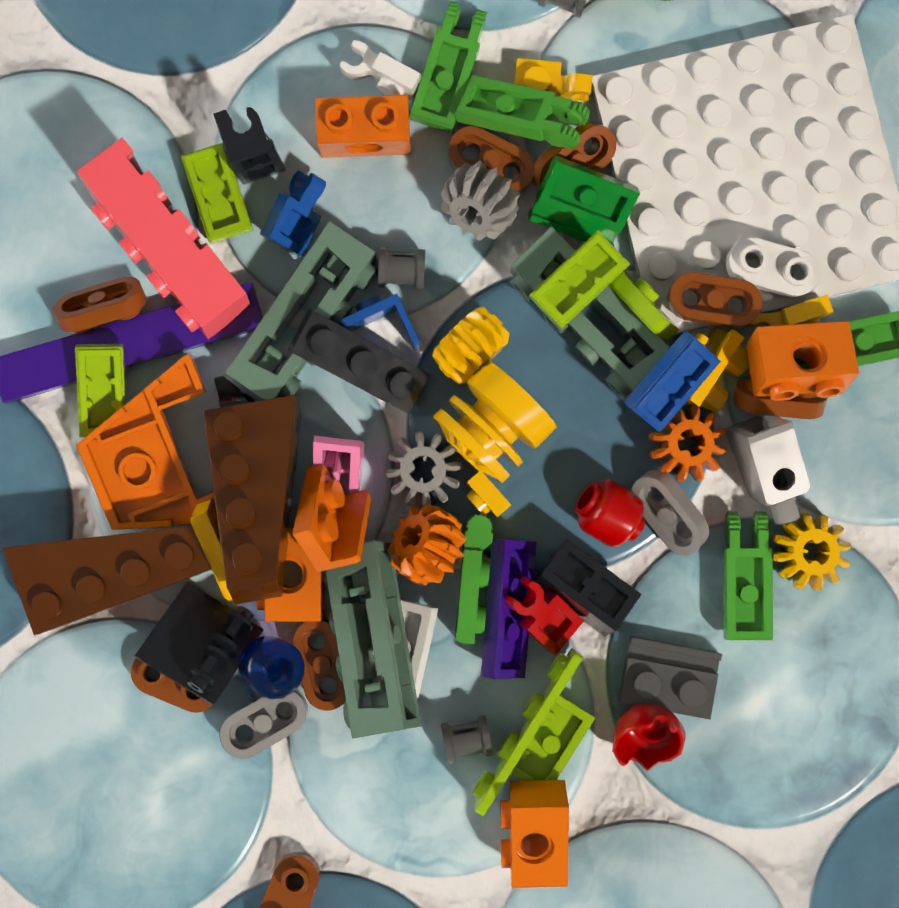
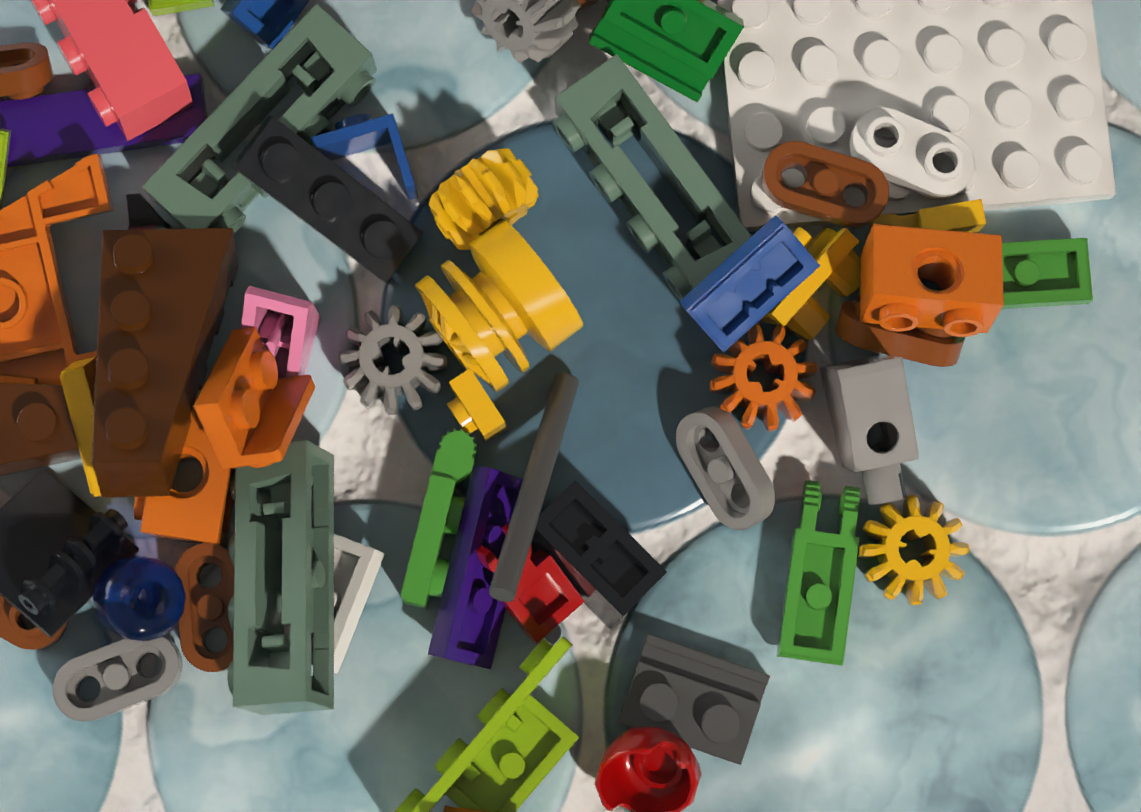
camera: 10 degrees right, 5 degrees down
(401, 268) = (406, 83): dark grey bush -> none
(426, 544) = (380, 459): orange gear -> none
(466, 739) = (395, 742): dark grey bush -> none
(539, 550) = (533, 488): none -> dark grey bar
(579, 280) = (641, 129): lime plate -> none
(610, 513) = (642, 456): red head -> none
(641, 299) = (722, 166): lime plate -> none

